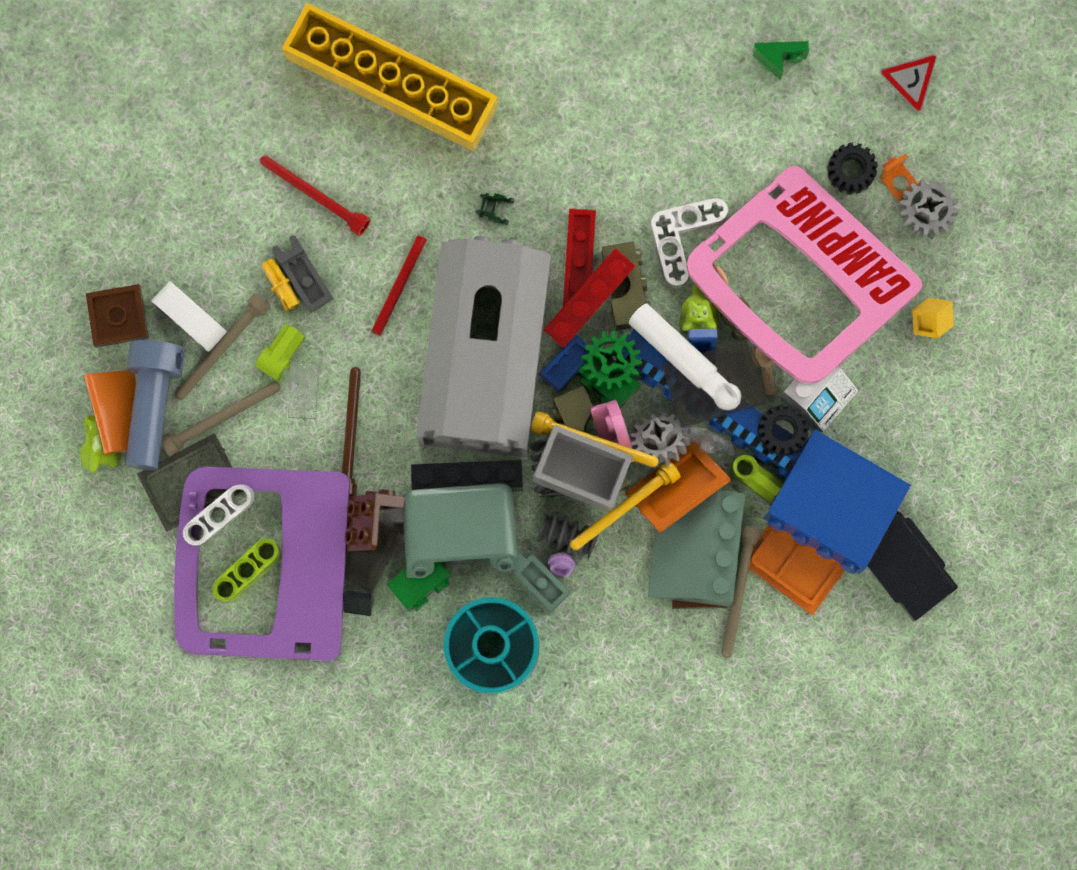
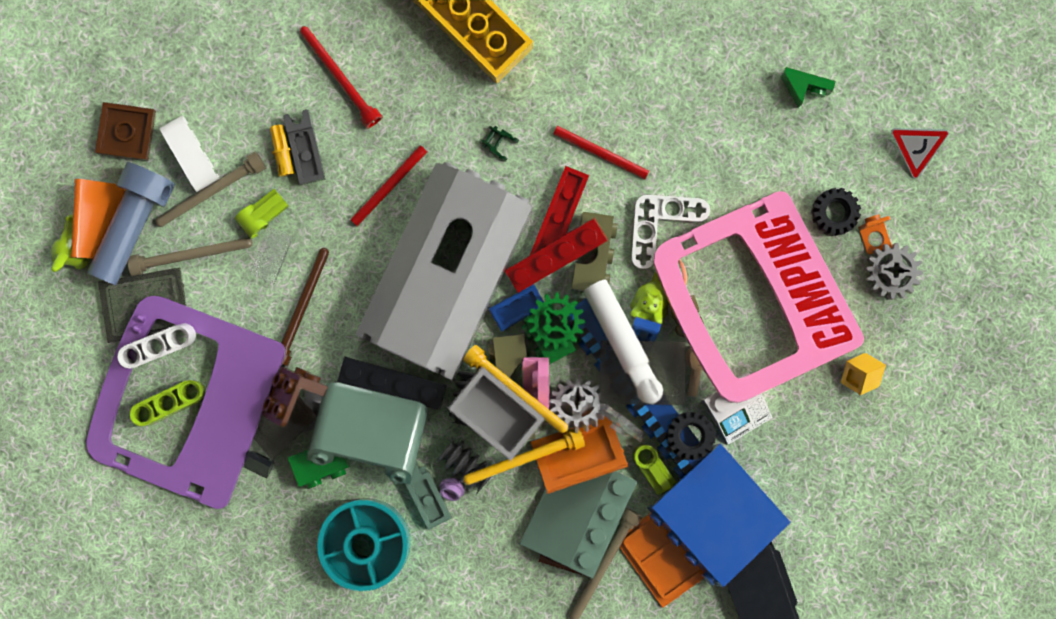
camera: 15 degrees right, 5 degrees up
(600, 185) = (601, 152): none -> red piece

